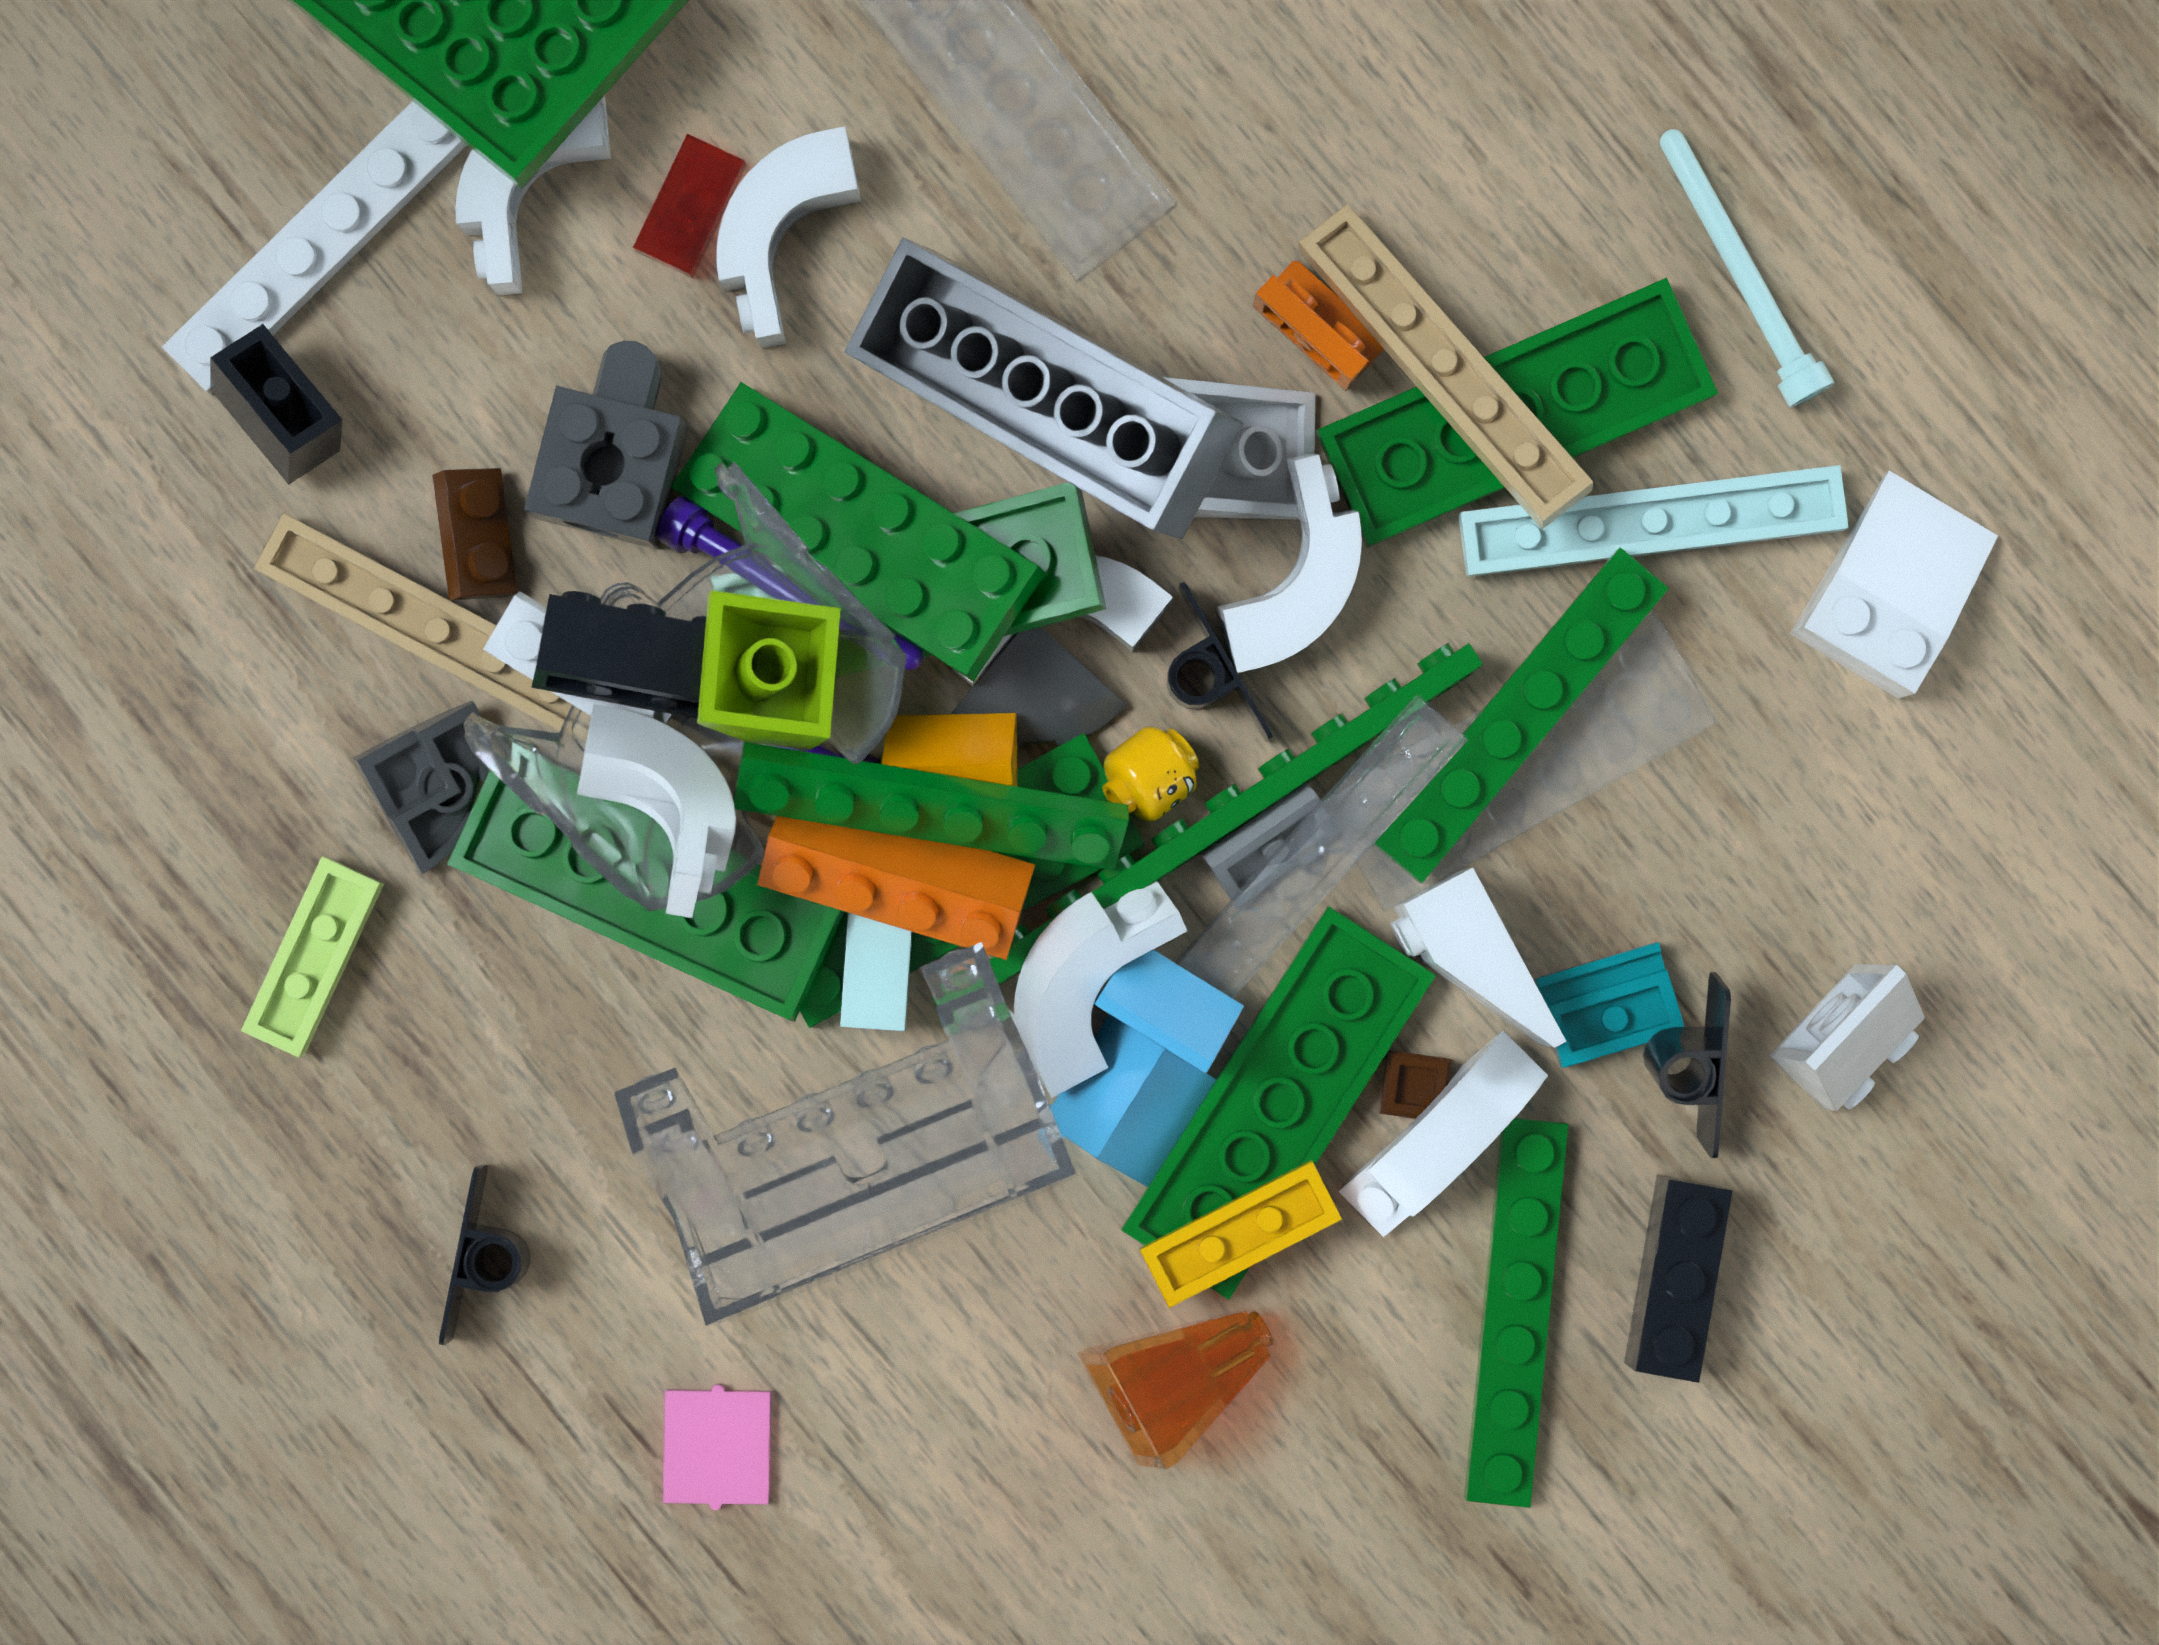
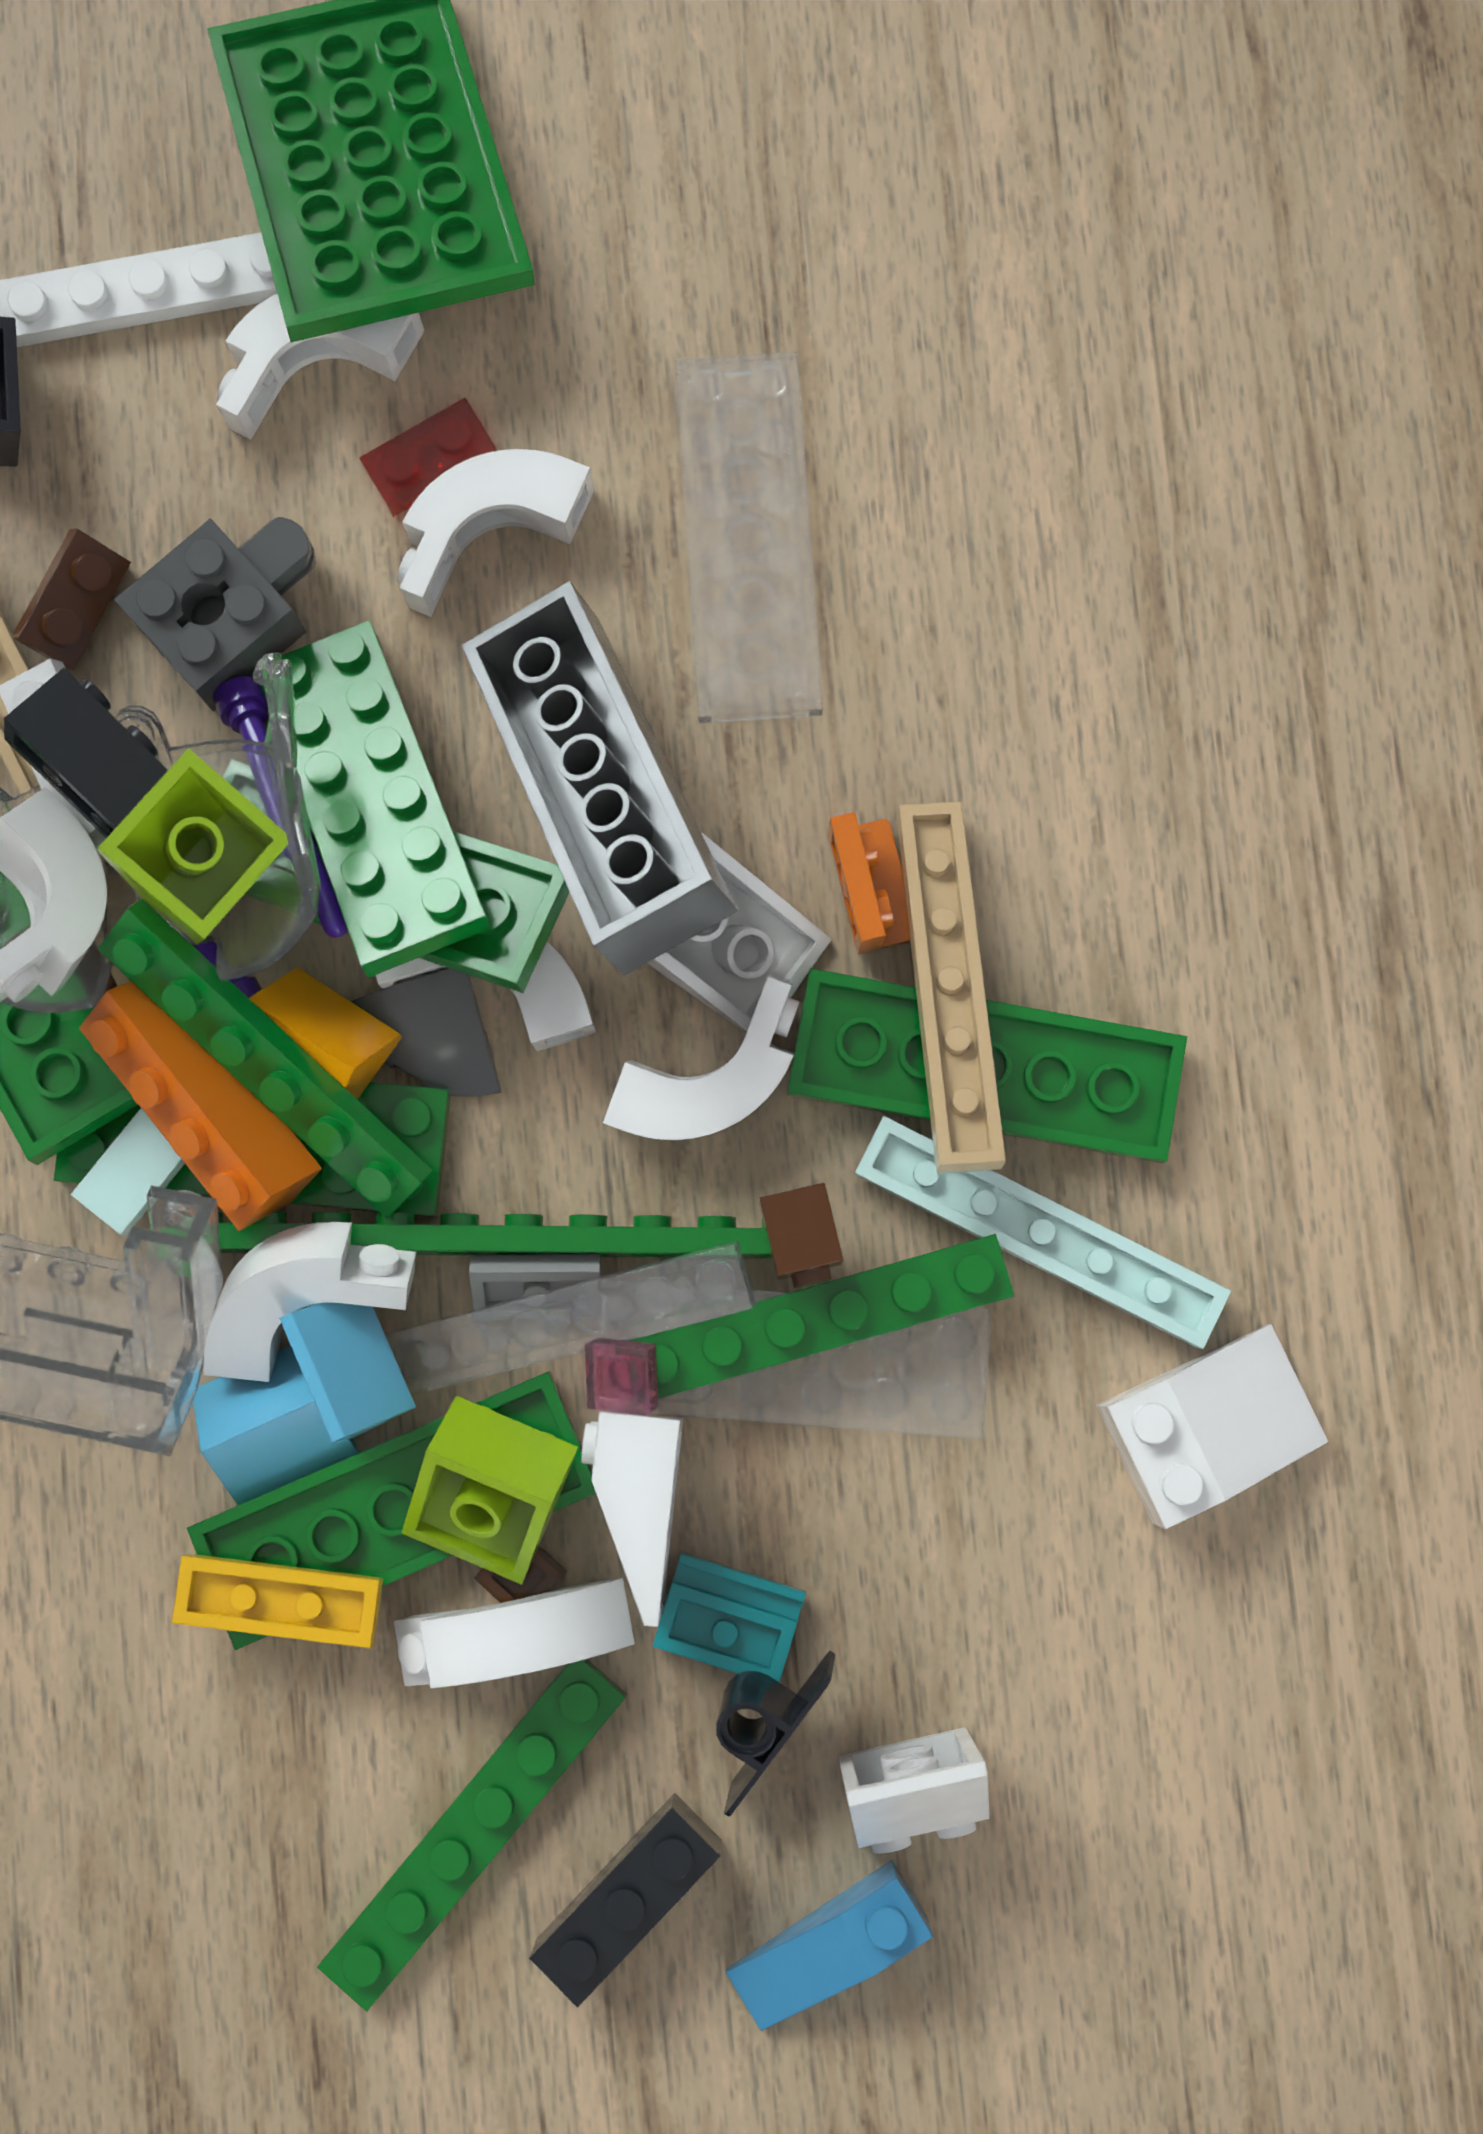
camera: 35 degrees right, 5 degrees down
(1151, 772) = (476, 1159): yellow head -> none
(1176, 1380) = (144, 1689): clear orange slope -> none
(1211, 654) = (597, 1096): black piece -> none
(1350, 1030) = (488, 1489): none -> lime slope
(1398, 866) = (621, 1376): none -> clear pink plate
(1466, 653) = (802, 1234): none -> reddish brown brick
(1799, 373) = (1248, 1191): light aqua piece -> none
(1865, 1207) = (832, 1948): none -> dark azure slope

